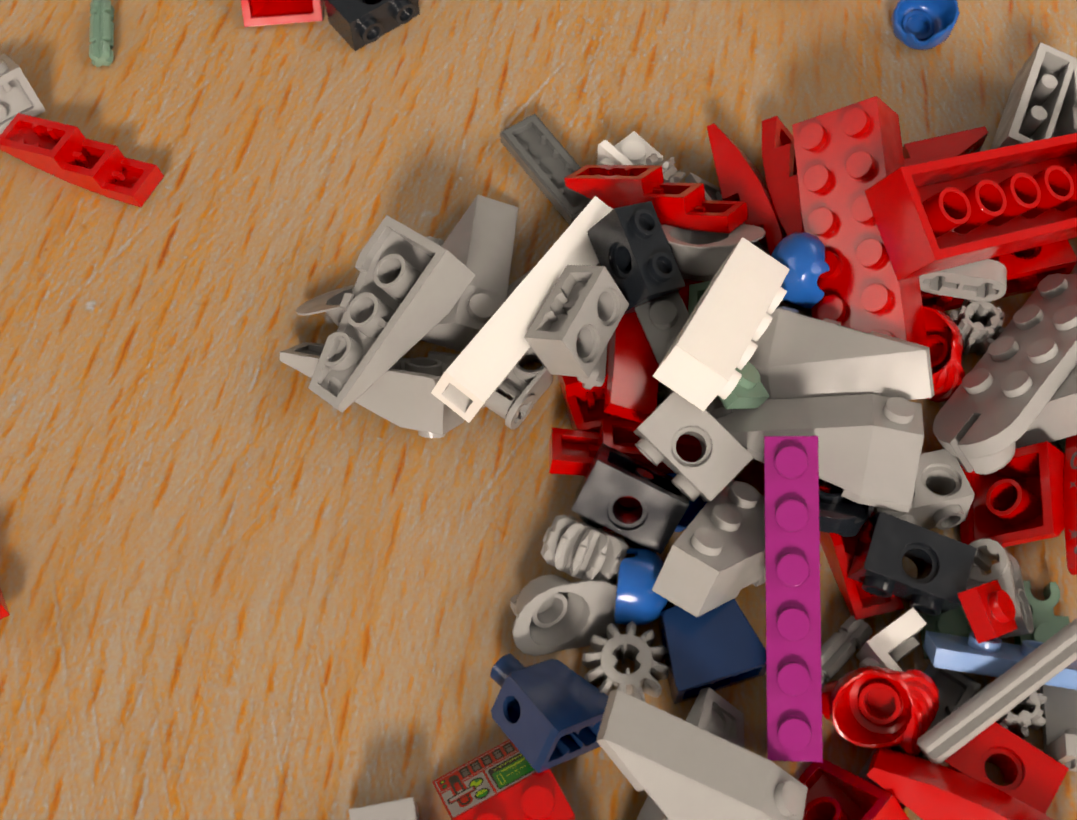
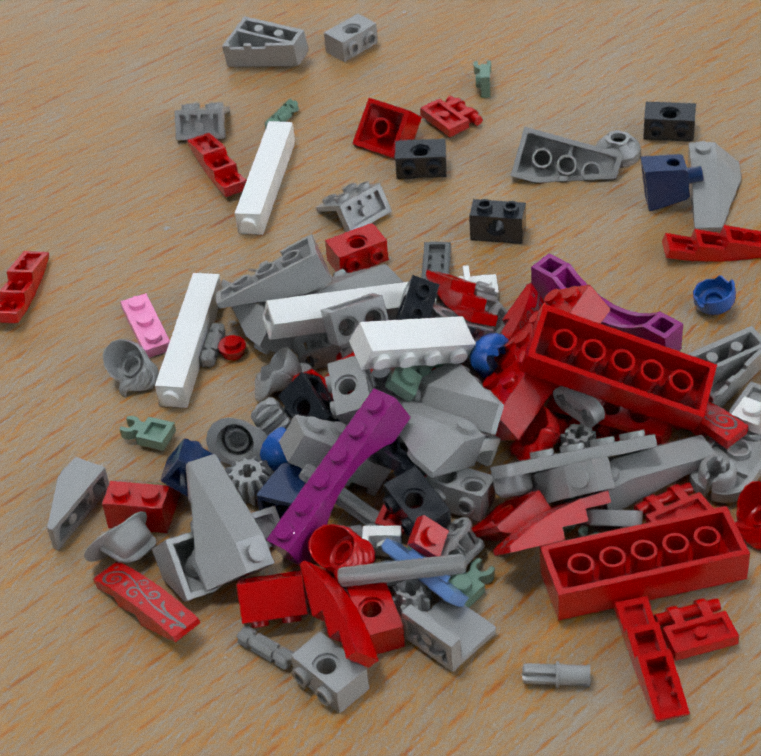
camera: 40 degrees right, 20 degrees down
(178, 147) = (265, 178): none -> white brick
(218, 492) = (145, 325): none -> bright pink plate
(271, 584) = (130, 366): none -> light grey hair
(318, 484) = (186, 343): none -> white brick
(348, 116) = (357, 204): none -> light grey bracket
(351, 467) = (210, 347): none -> light grey axle
(384, 452) = (232, 347): none -> red plate
(407, 675) = (151, 433): none -> sand green plate
(425, 174) = (357, 249): none -> red brick
(505, 463) = (278, 373): none -> light grey hair
(567, 49) = (497, 221): none -> black brick
(742, 101) = (656, 327): none -> magenta arch
(751, 611) = (347, 500): none -> light grey axle

